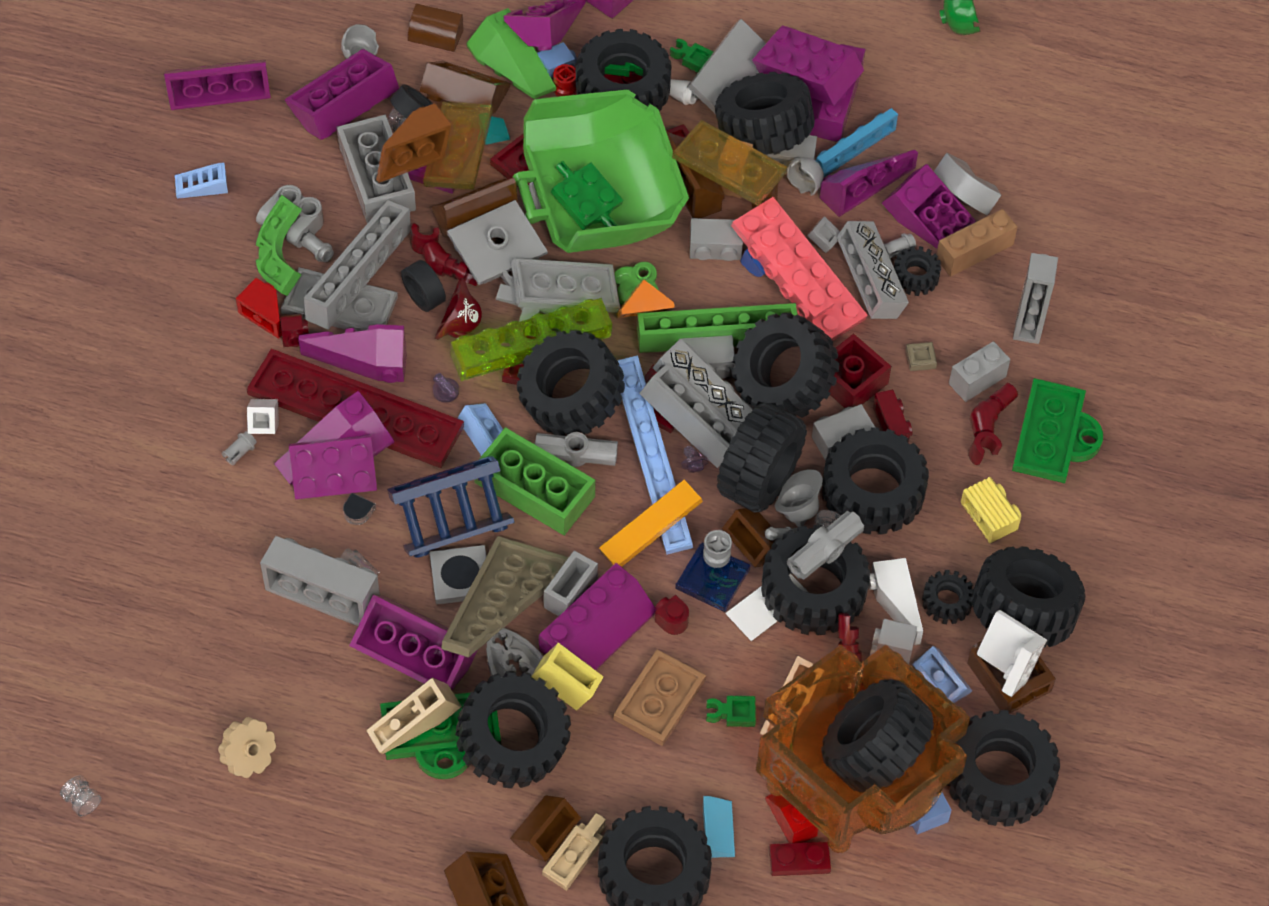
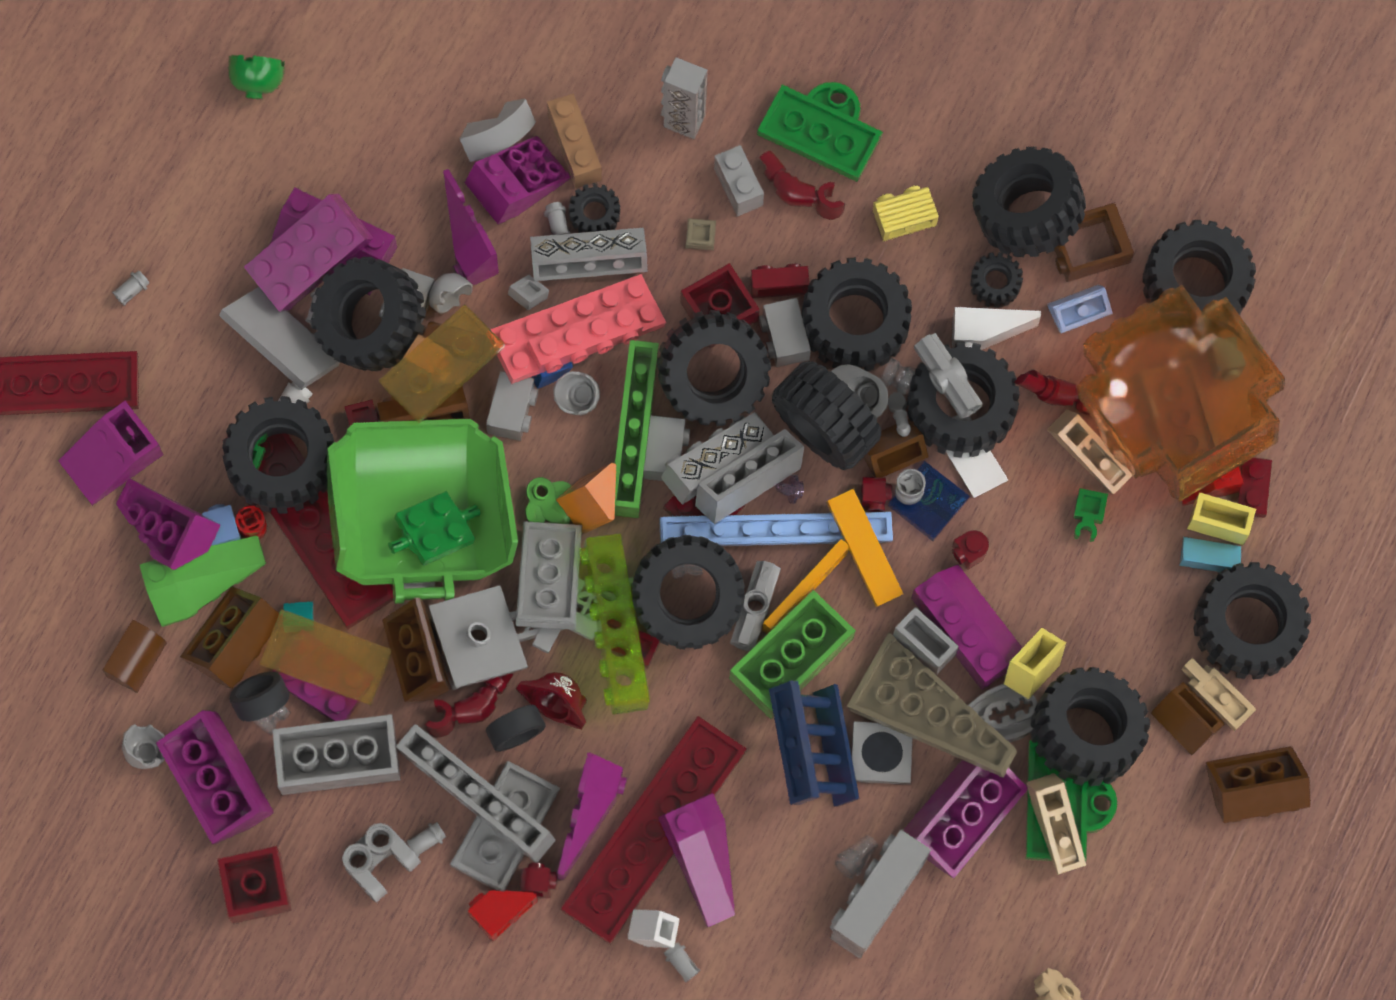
camera: 80 degrees left, 15 degrees up
(212, 187) = (300, 932): light blue slope -> none
(217, 84) = (162, 919): magenta slope -> none
(255, 133) = (254, 884): none -> dark red brick
(270, 242) = (423, 892): bright green plate -> none
(332, 467) = (735, 862): magenta plate -> none
(358, 509) = (782, 847): black tile -> none
(415, 143) = (337, 698): dark orange slope -> none
(445, 388) = (648, 729): clear purple plate -> none
(480, 425) = (704, 698): light blue slope -> none
(612, 490) = (808, 584): none -> light orange tile
(659, 697) = (1062, 580): medium nougat plate -> none
(692, 57) = (247, 373): green plate -> none
(703, 523) = (875, 493): none -> dark red plate
(739, 282) = (576, 393): none -> light grey hair
(754, 824) = (1221, 519): none -> light yellow brick
(857, 142) = (404, 221): dark azure plate -> none
(877, 735) = (1202, 353): black tyre -> none
(896, 636) = (1055, 342): light grey brick -> none
(1011, 649) = (1094, 227): white bracket -> none

